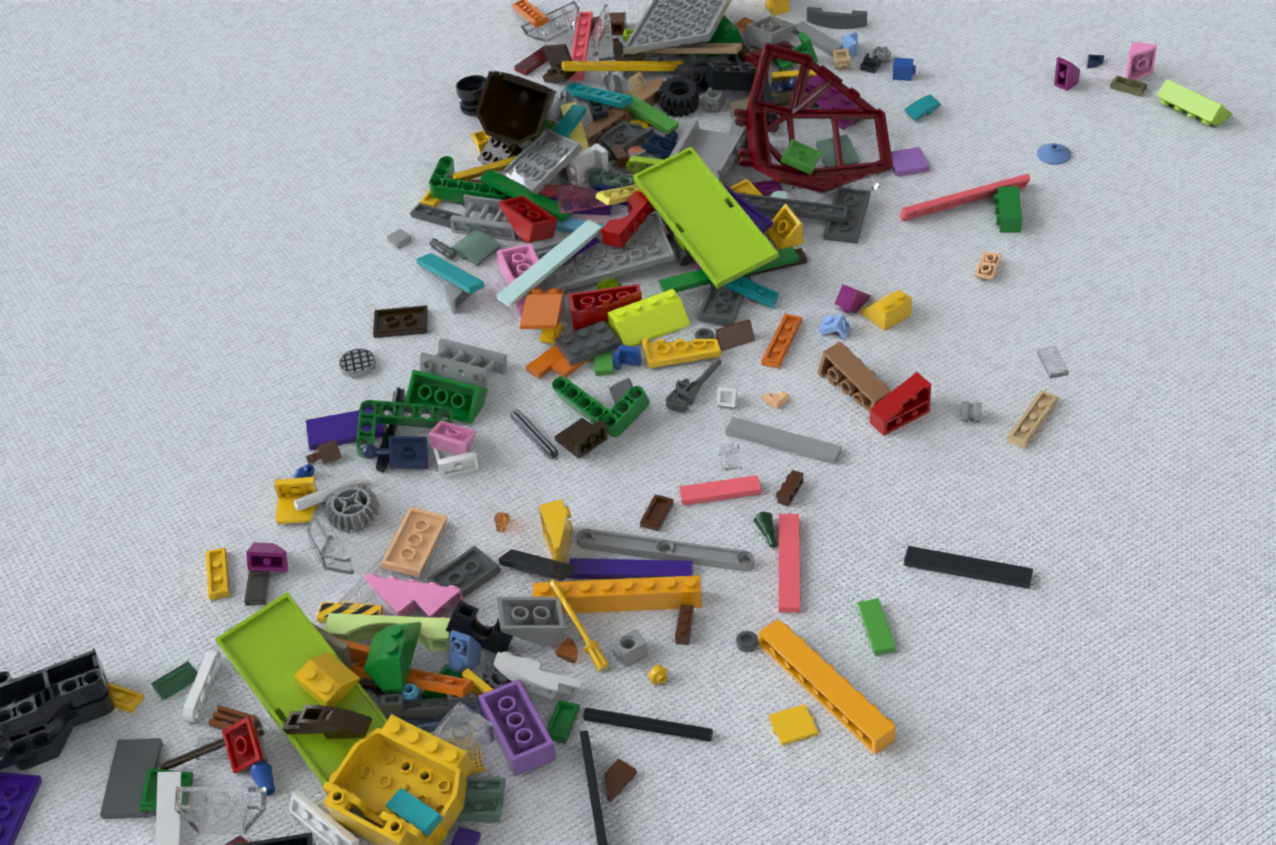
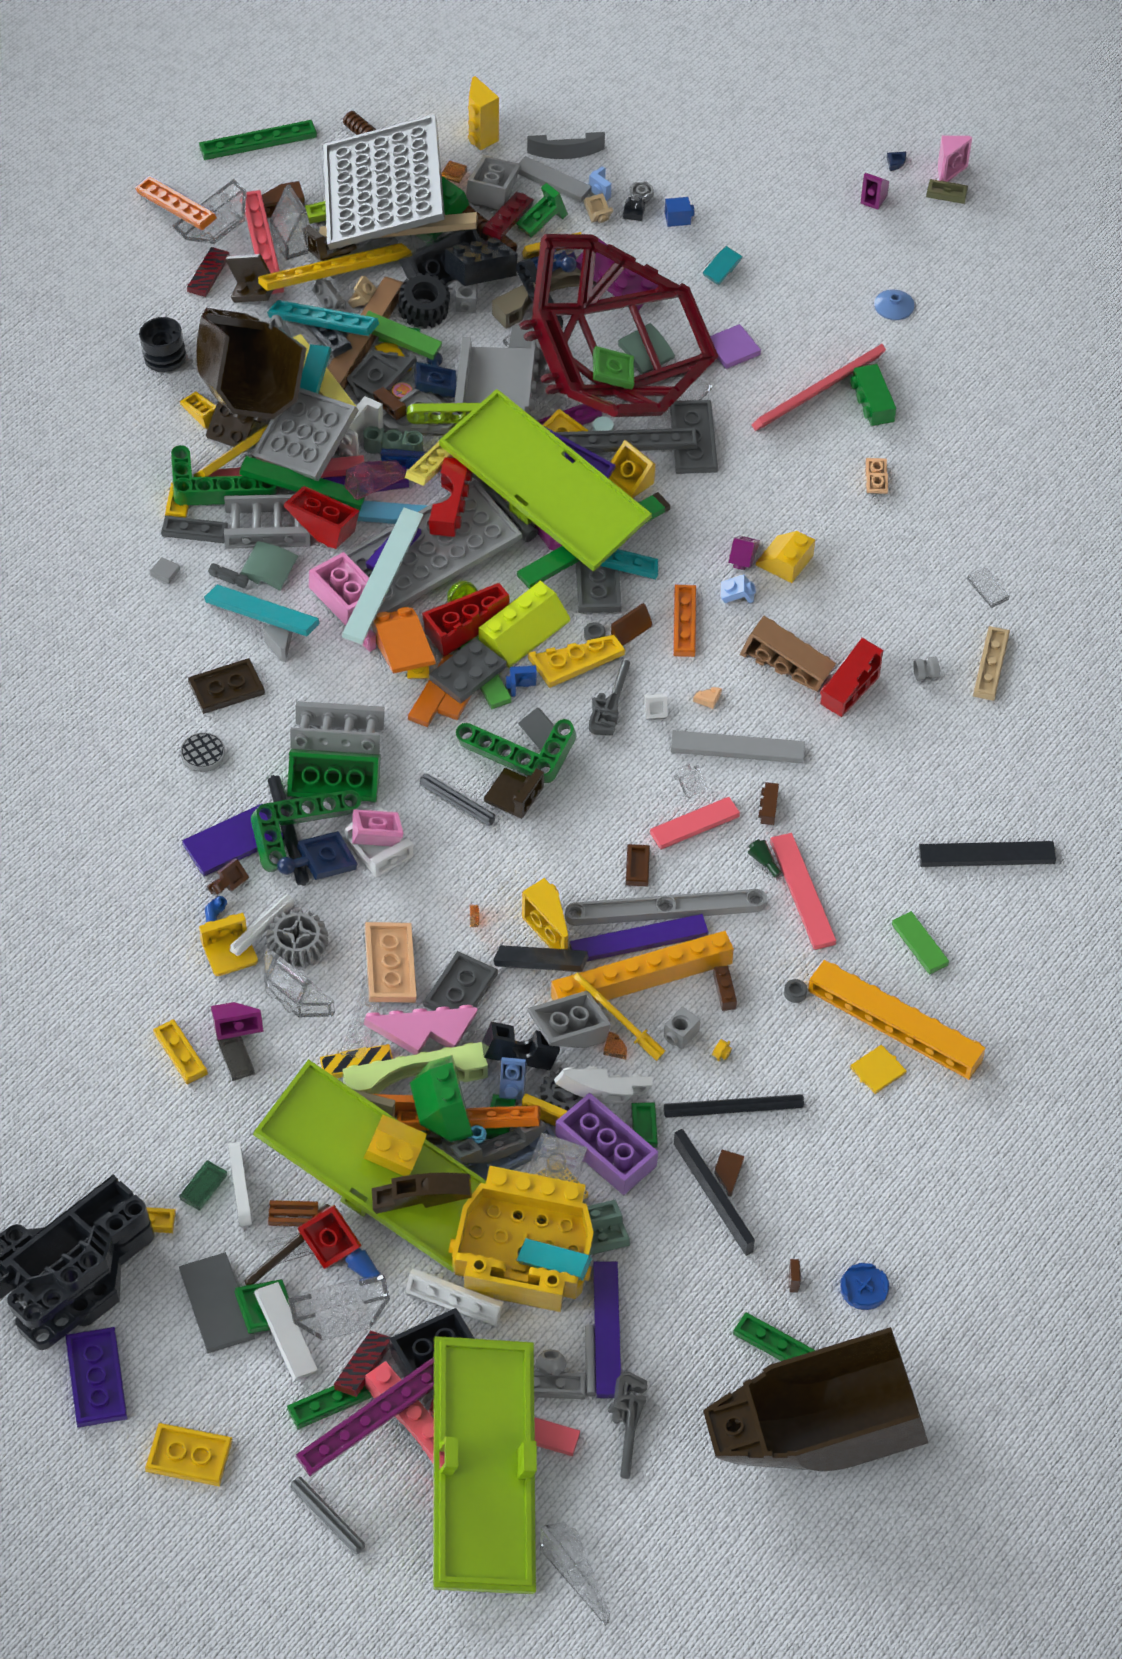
camera: 25 degrees left, 10 degrees up
(1193, 103) = (1029, 208): slope -> none

